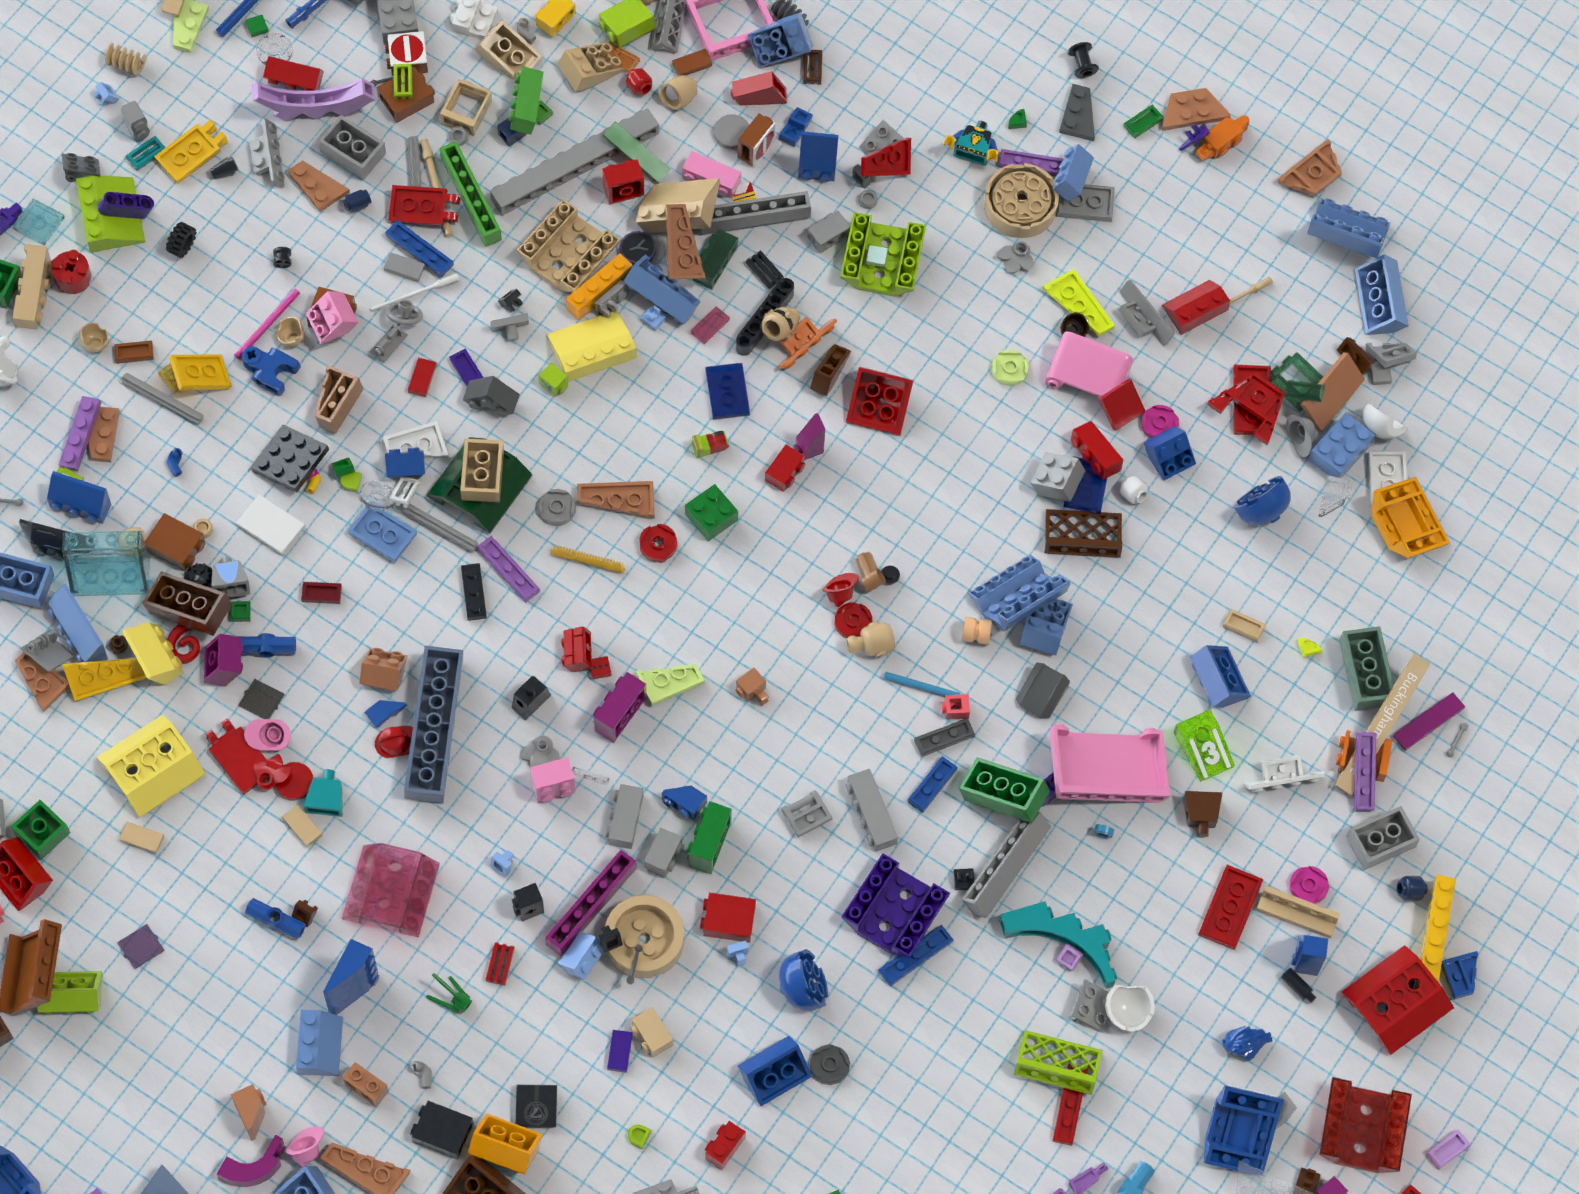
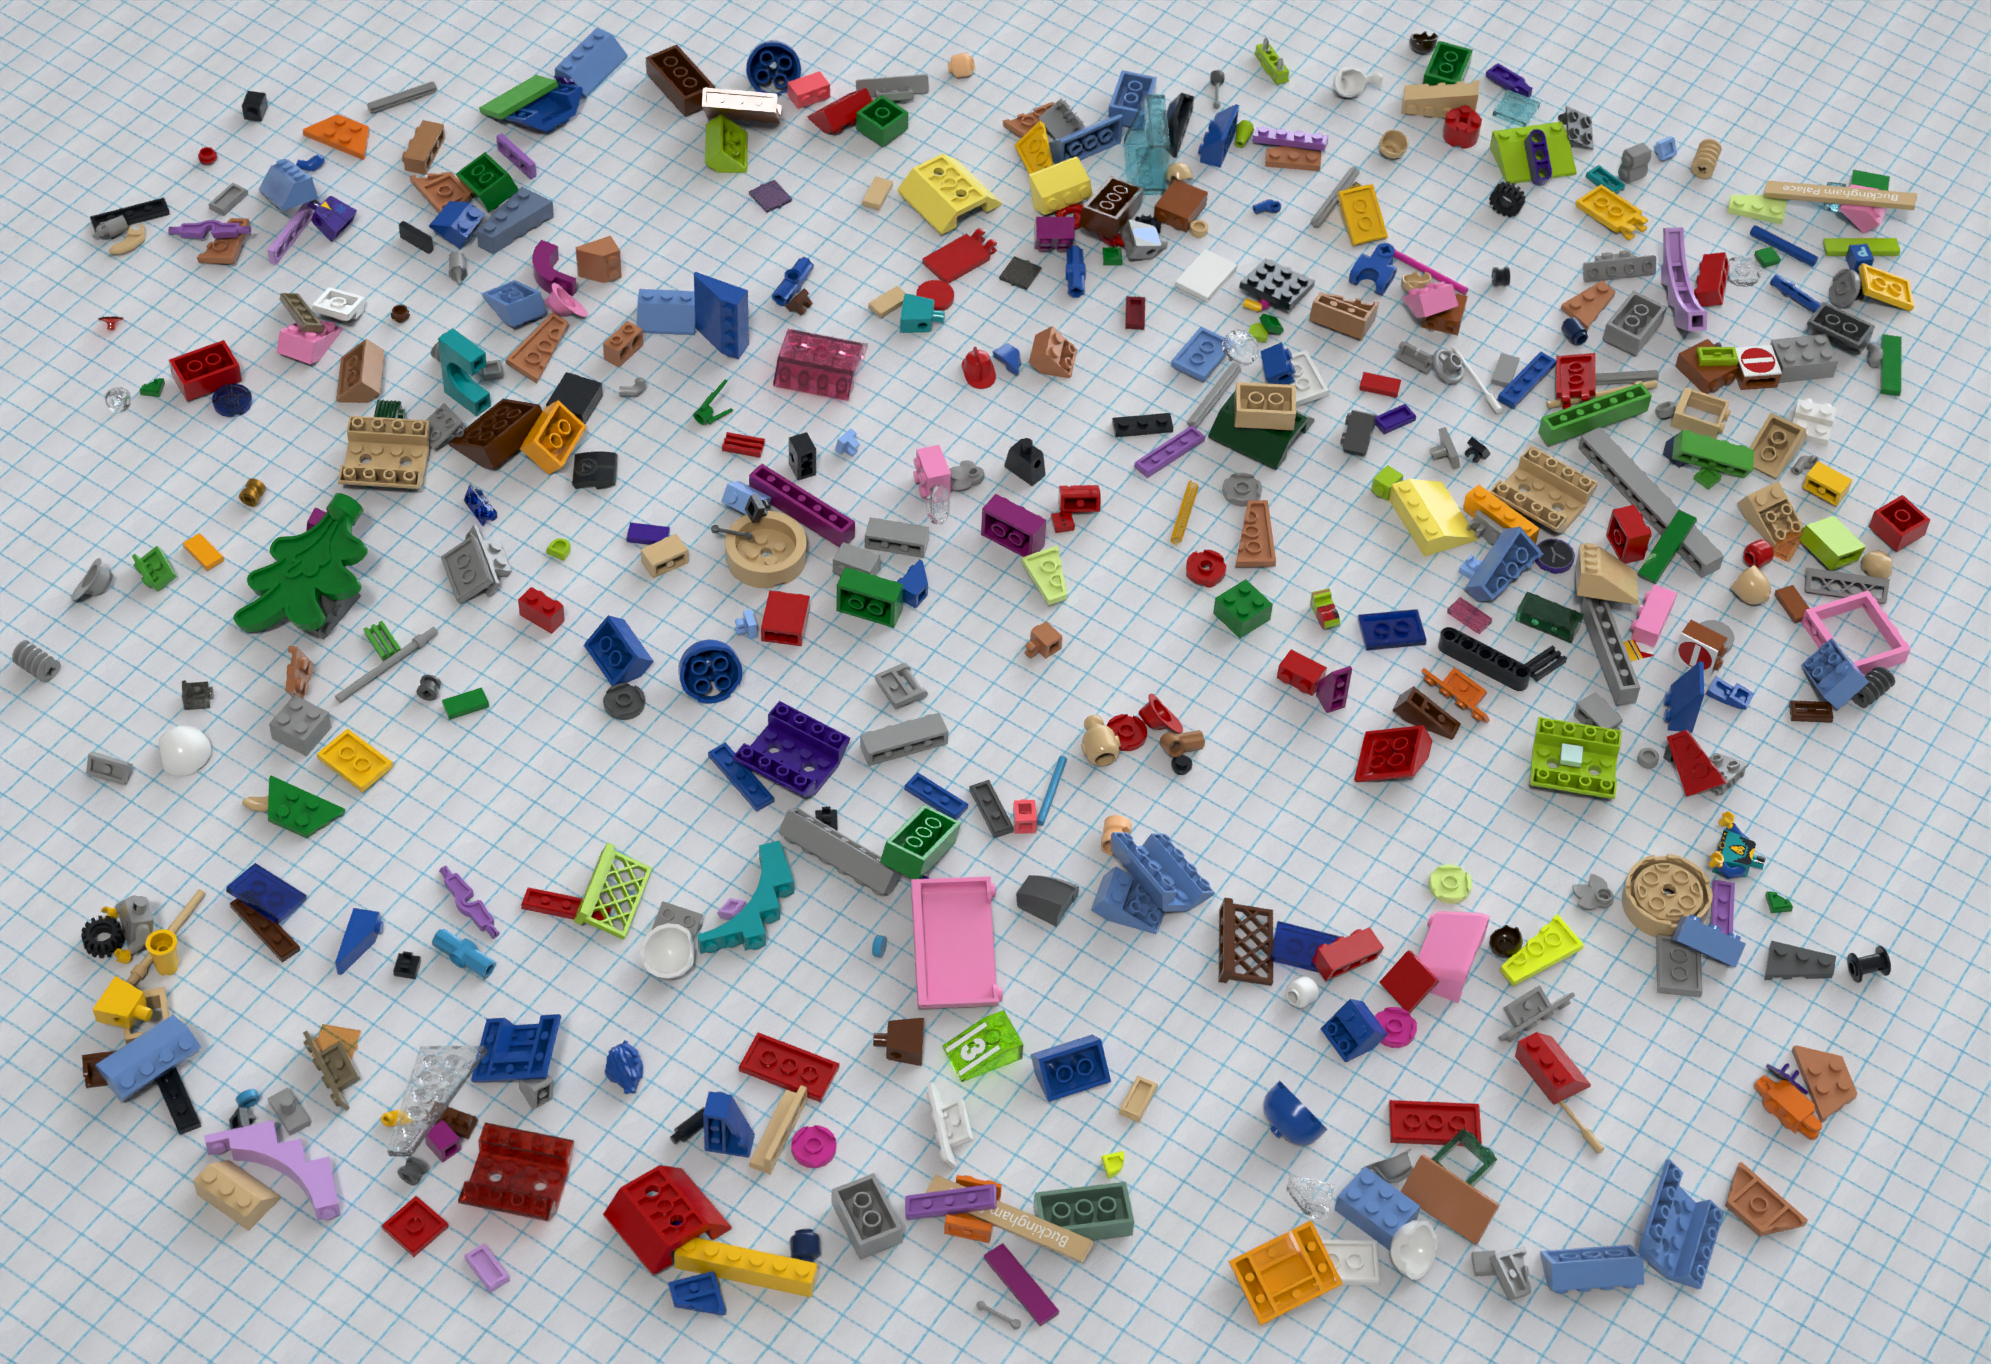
camera: 90 degrees right, 15 degrees down
(134, 352) = (1384, 177): dark orange tile -> none
(224, 168) = (1596, 234): black cone -> none
(267, 734) = (980, 270): bright pink piece -> none
(272, 770) = (941, 274): red plate -> none
(400, 500) = (1245, 367): white tile -> none
(433, 724) = (992, 387): sand blue brick -> none
(681, 245) = (1546, 568): nougat wing -> none
(759, 90) = (1767, 658): red slope -> none
(780, 323) = (1471, 661): tan piece -> none
(1057, 476) = (1309, 912): light grey brick -> none
(1143, 121) = (1799, 1028): green tile -> none
(1256, 397) = (1432, 1120): red wing -> none
(1304, 390) = (1440, 1155): clear green tile -> none
(1358, 355) = (1509, 1229): reddish brown plate -> none

